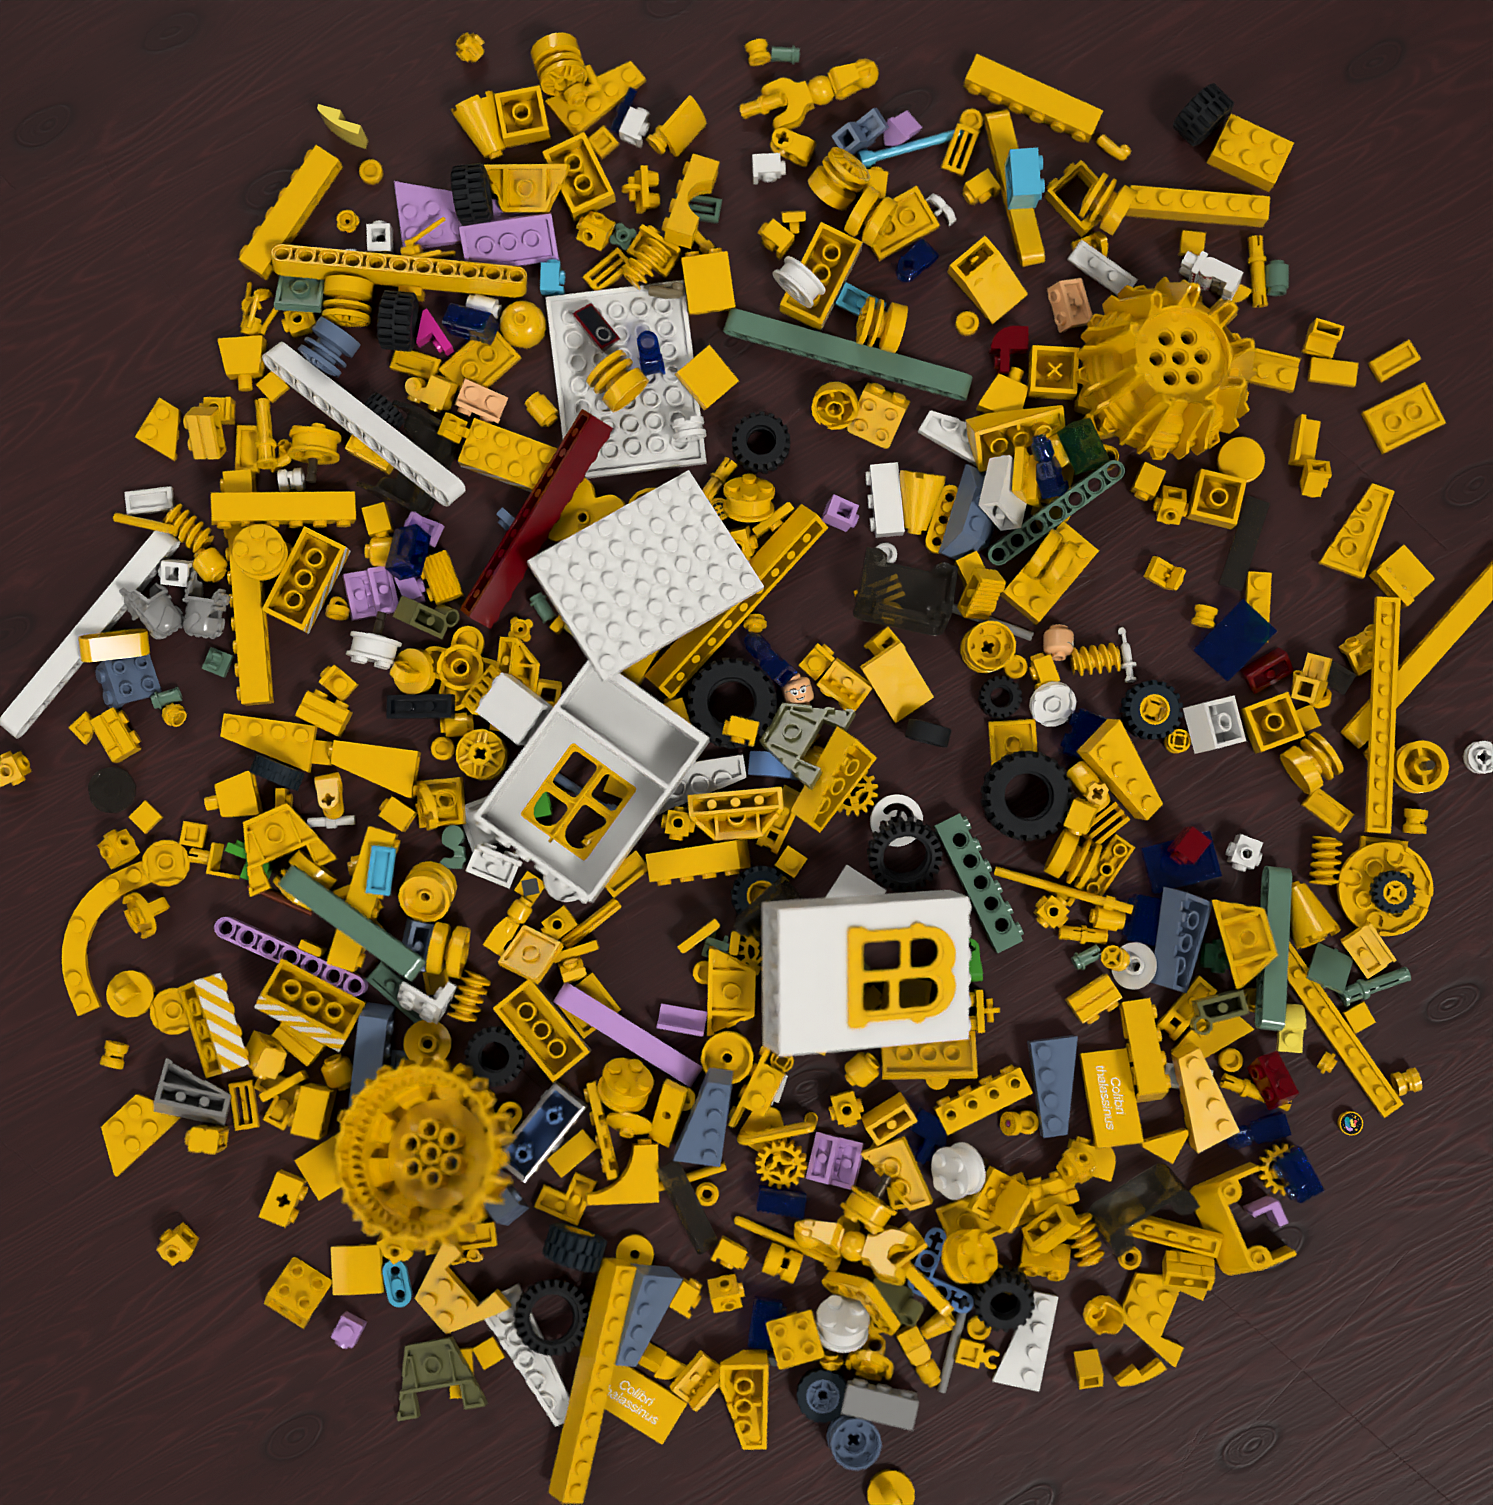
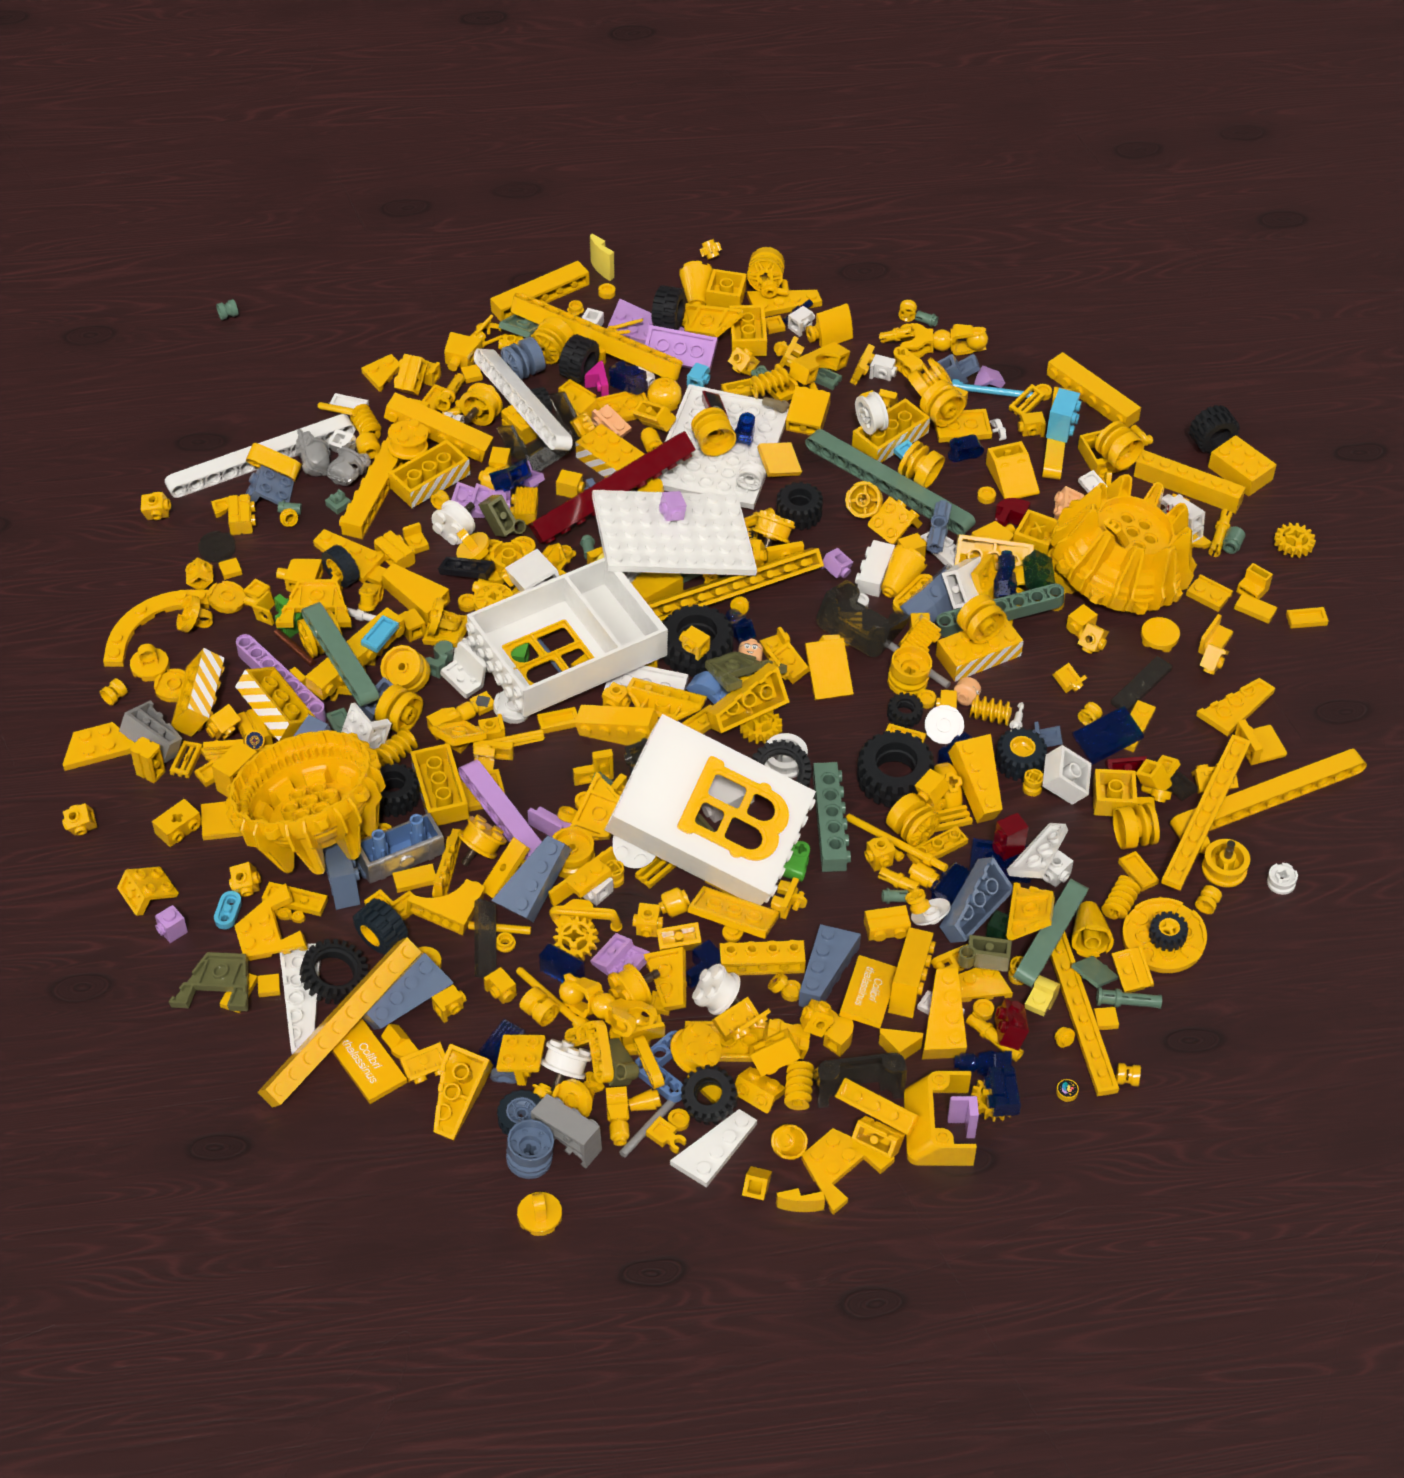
camera: 25 degrees right, 35 degrees down
(312, 1064) = (254, 740): none -> tile
(357, 1269) = (202, 890): yellow slope -> none
(477, 520) = (569, 484): none -> yellow brick
(530, 374) = (654, 415): none -> yellow brick
(628, 1124) = (470, 865): yellow dish -> none
(633, 548) = (672, 506): none -> lavender brick
(696, 1001) = (566, 814): none -> yellow tile
(725, 1293) = (482, 1009): yellow brick -> none
(742, 181) = (862, 366): none -> yellow plate
(915, 450) = (915, 542): none -> yellow brick
(928, 733) = (837, 706): black tyre -> none
(941, 430) = (939, 526): none -> sand blue piece
(1134, 1263) = (832, 1110): yellow plate -> none
(1169, 668) = (1051, 735): none -> sand blue bracket
(1174, 389) = (1120, 537): none -> yellow tile
(1216, 499) = (1129, 645): yellow brick -> none
(1224, 857) = (1039, 854): none -> white wing
(1351, 256) = (1294, 540): none -> yellow gear
(1403, 418) = (1301, 652): yellow tile -> none

